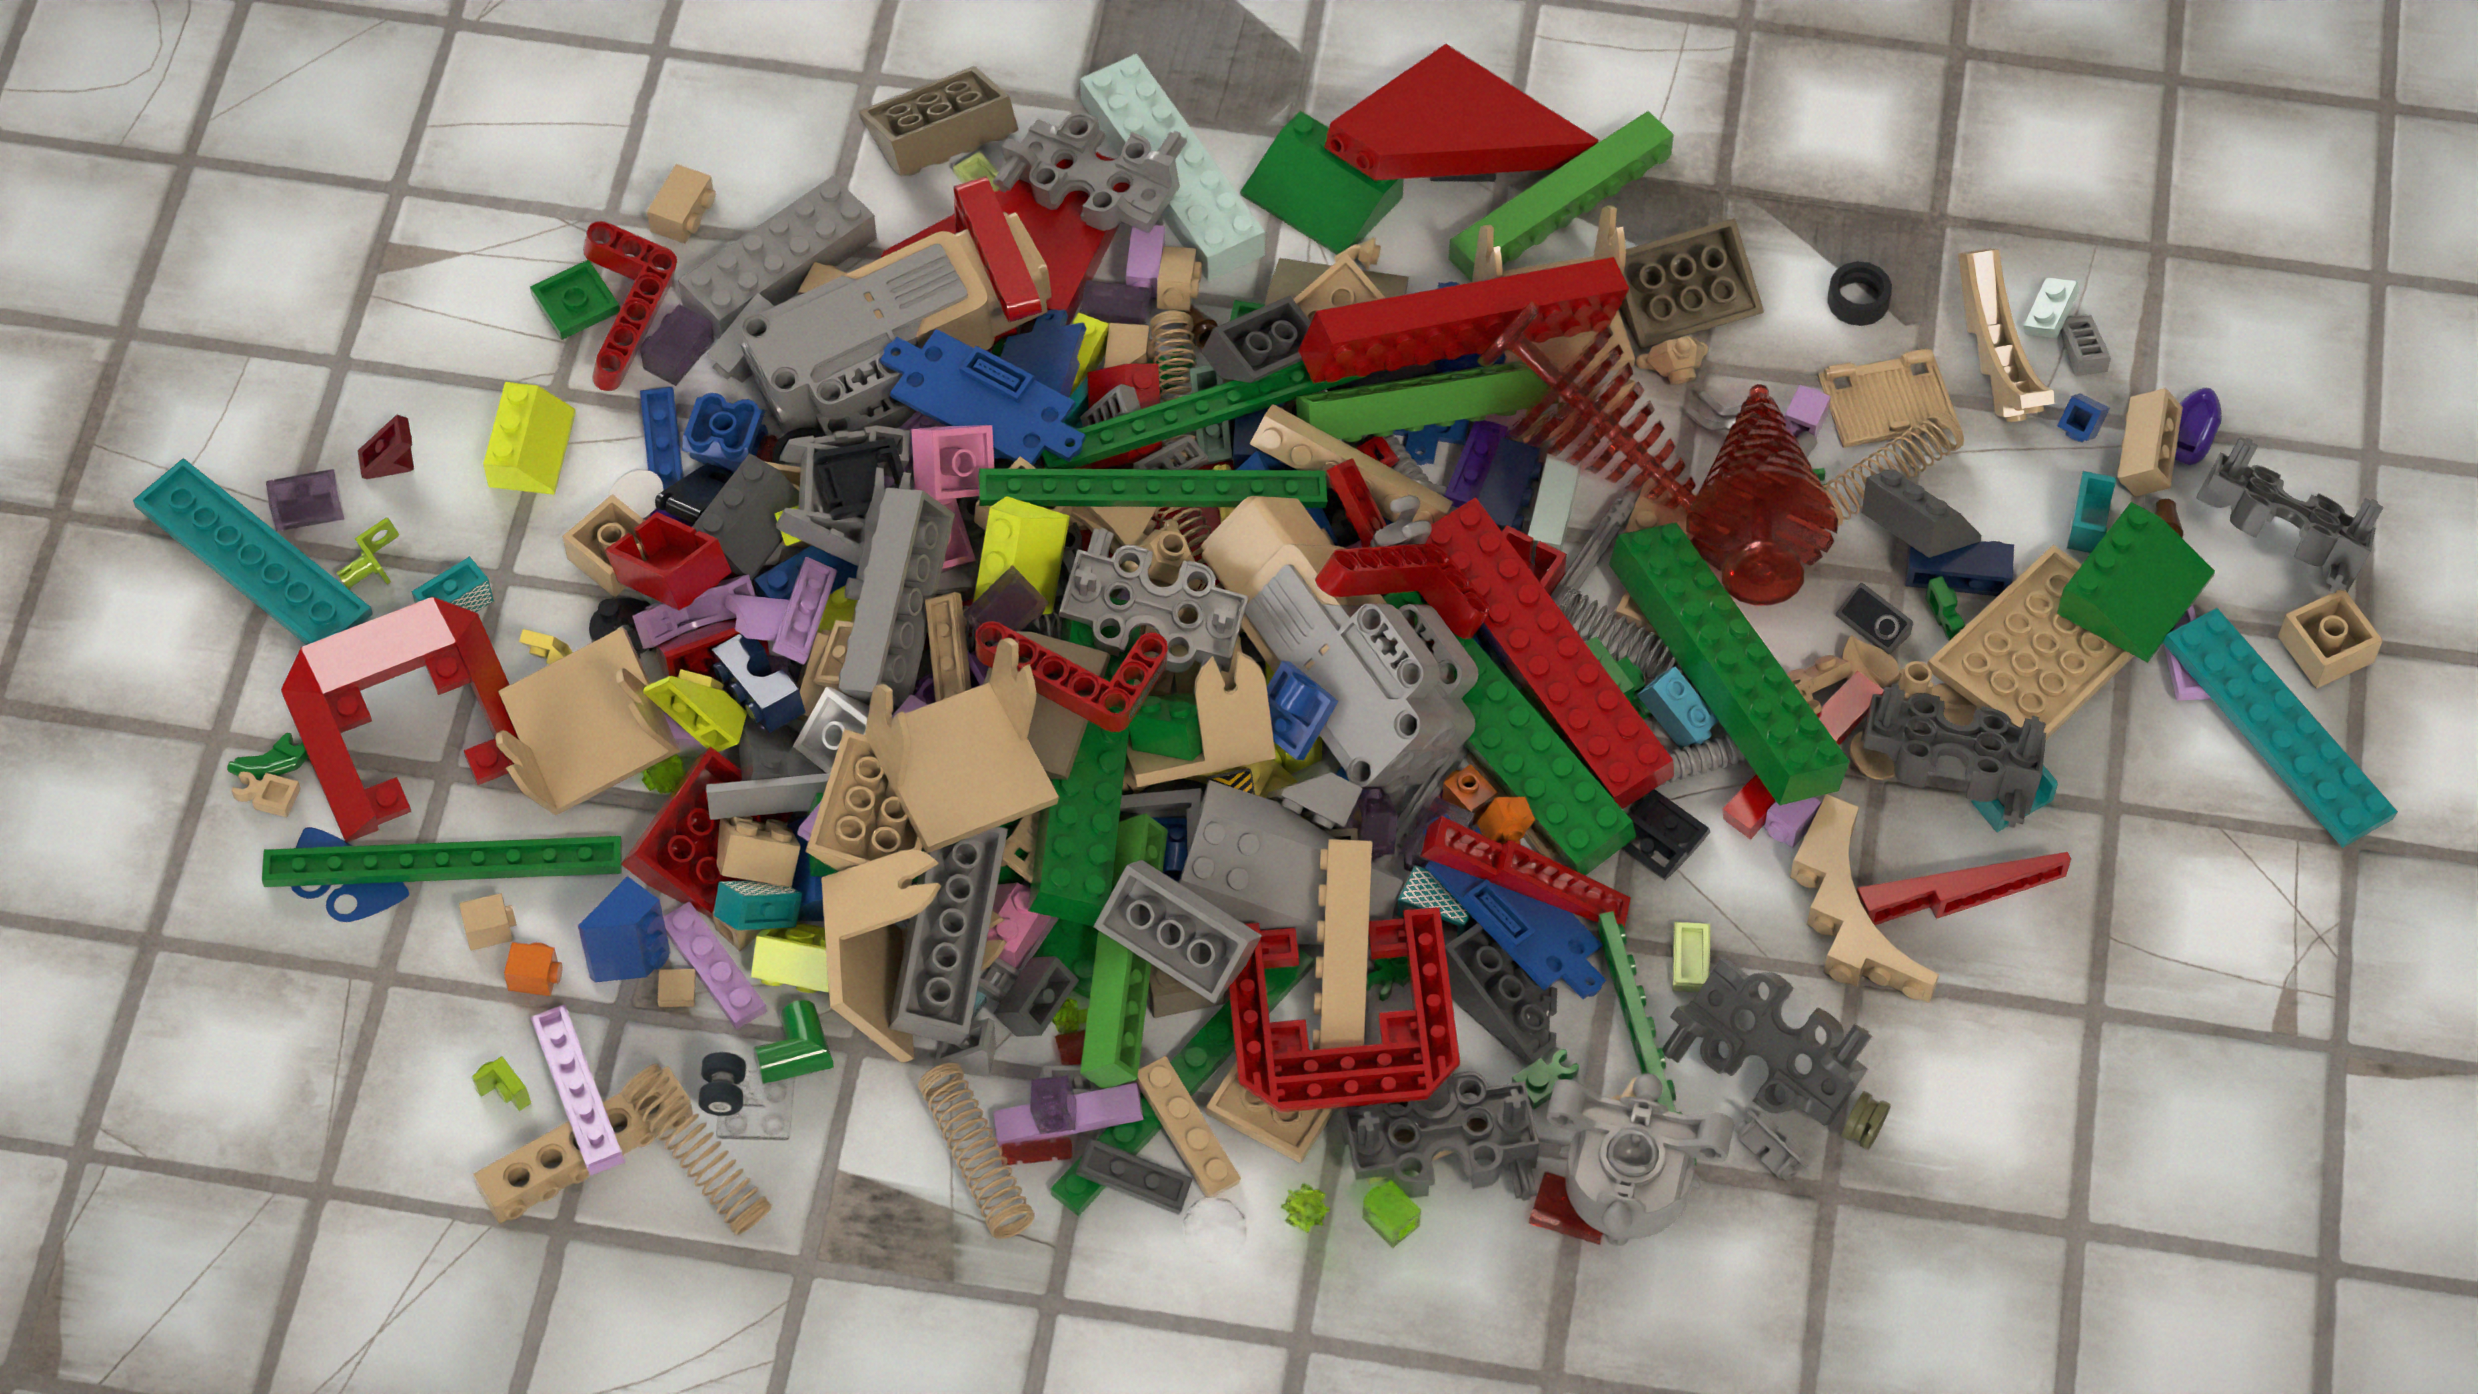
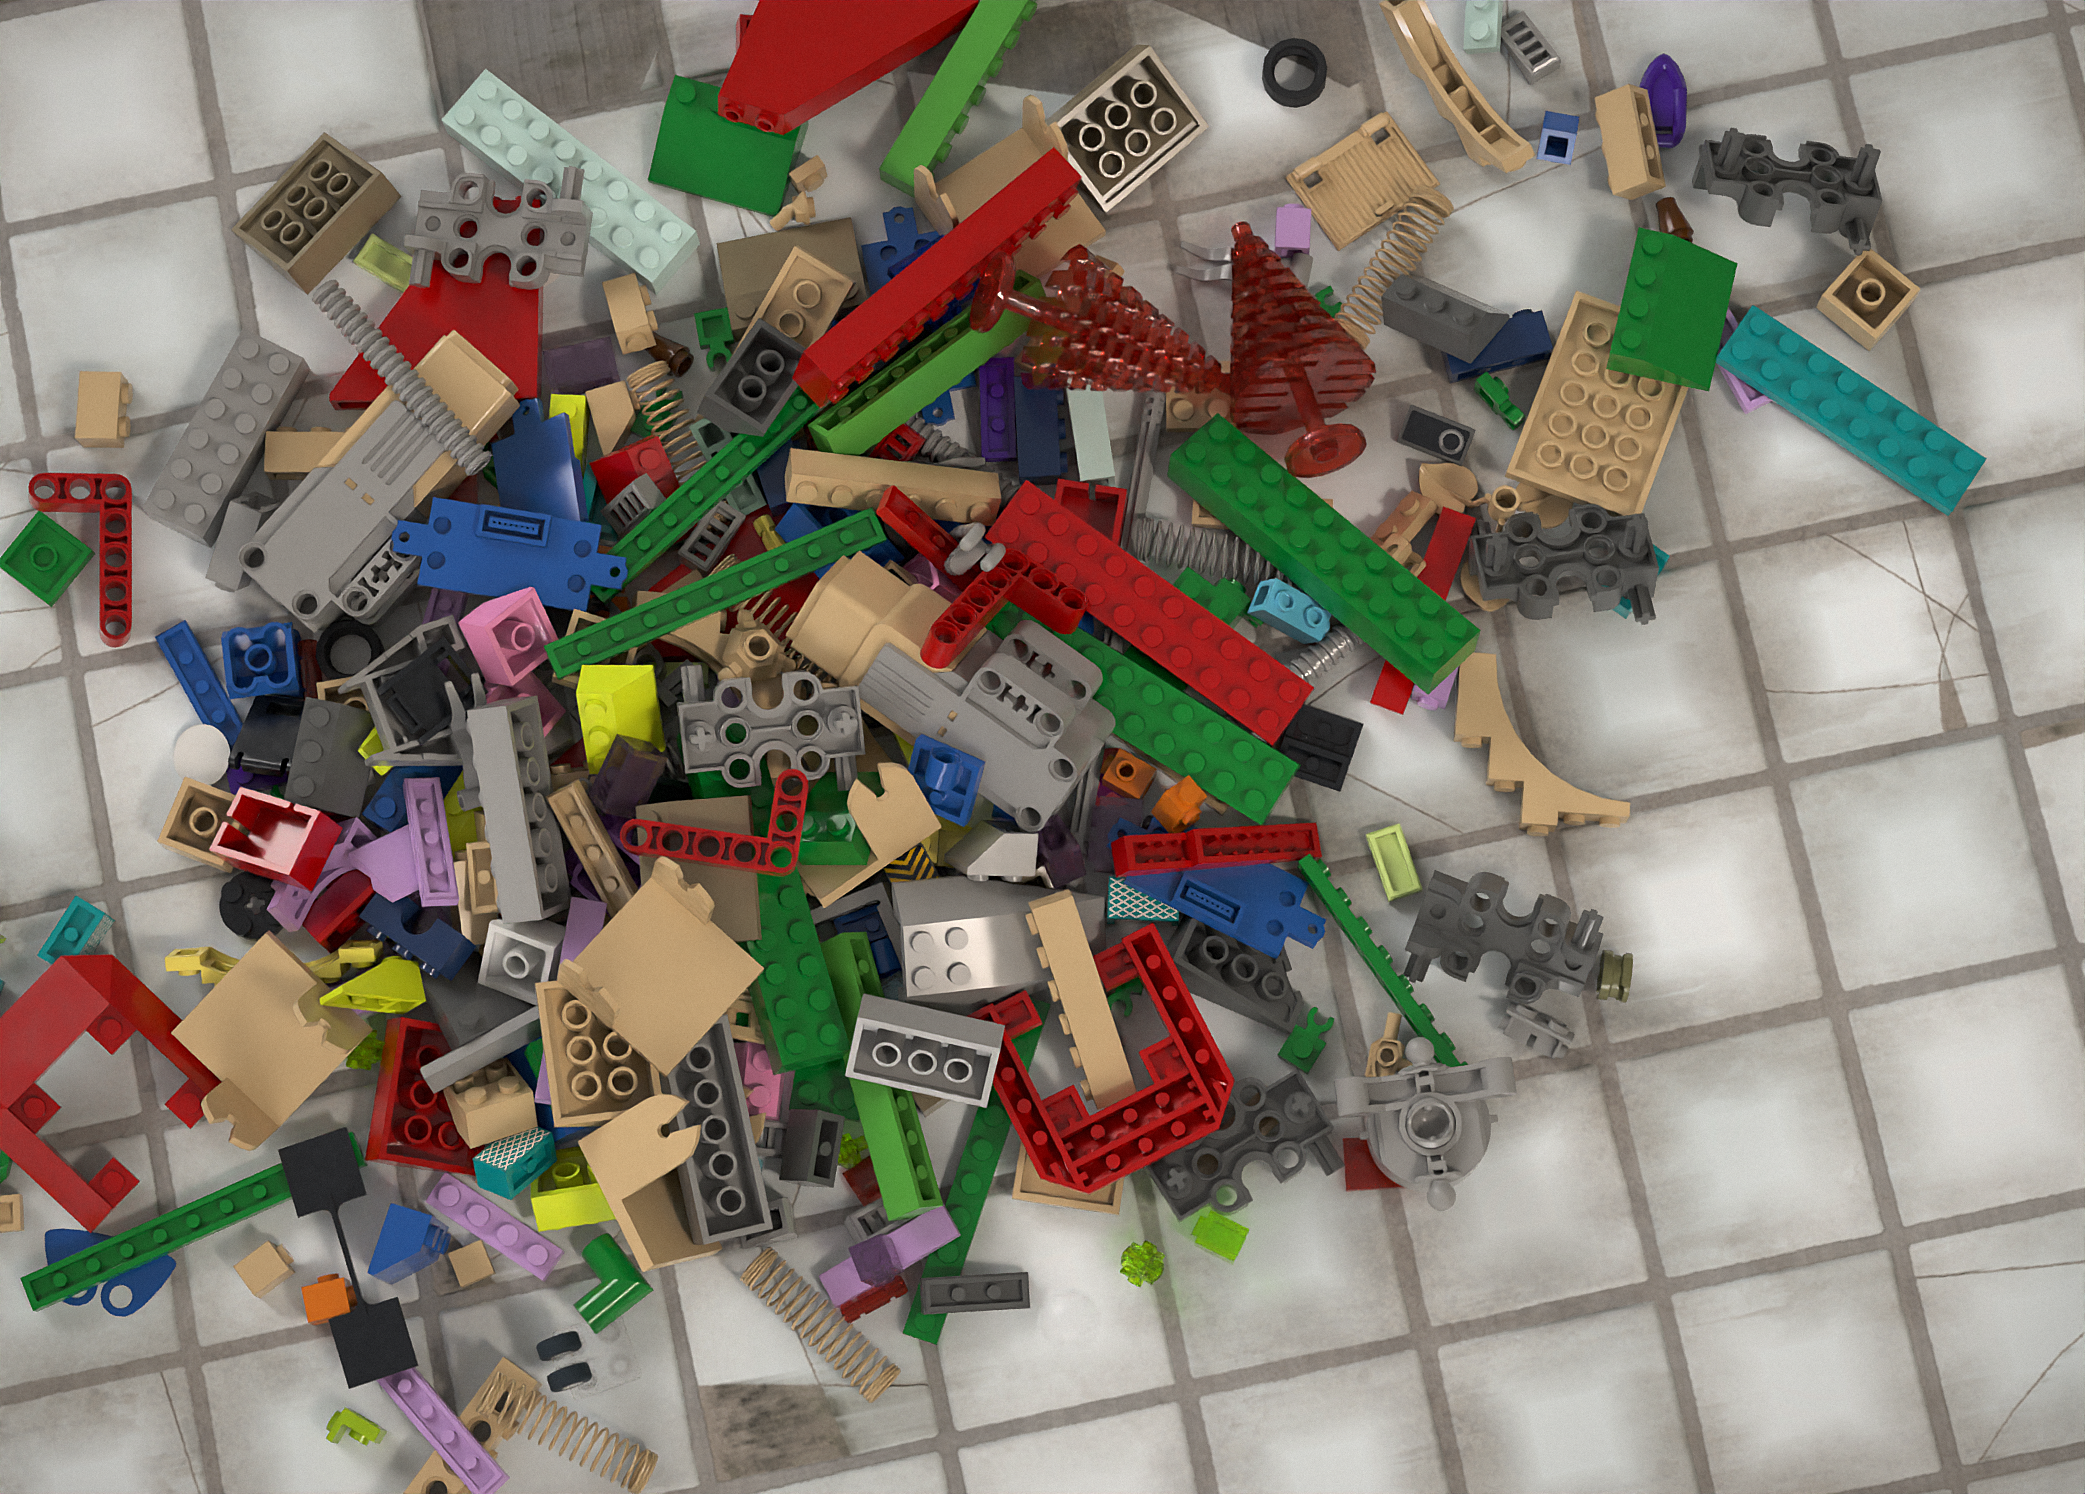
camera: 15 degrees left, 20 degrees up
(528, 440) = (71, 735): neon yellow slope -> none
(557, 1006) = (374, 1336): none -> black hinge
(676, 344) = (168, 572): clear purple brick -> none
(952, 226) = (401, 377): none -> light grey piece
(981, 214) = (457, 386): red beam -> none
(1145, 257) = (590, 304): lavender brick -> none
(1187, 1127) = (1003, 1225): tan plate -> none
(1385, 228) = (808, 175): none -> tan plate
(1675, 359) = (1145, 218): tan rock -> none
(1959, 889) = (1612, 702): red slope -> none
(2091, 511) = (1599, 241): teal panel -> none

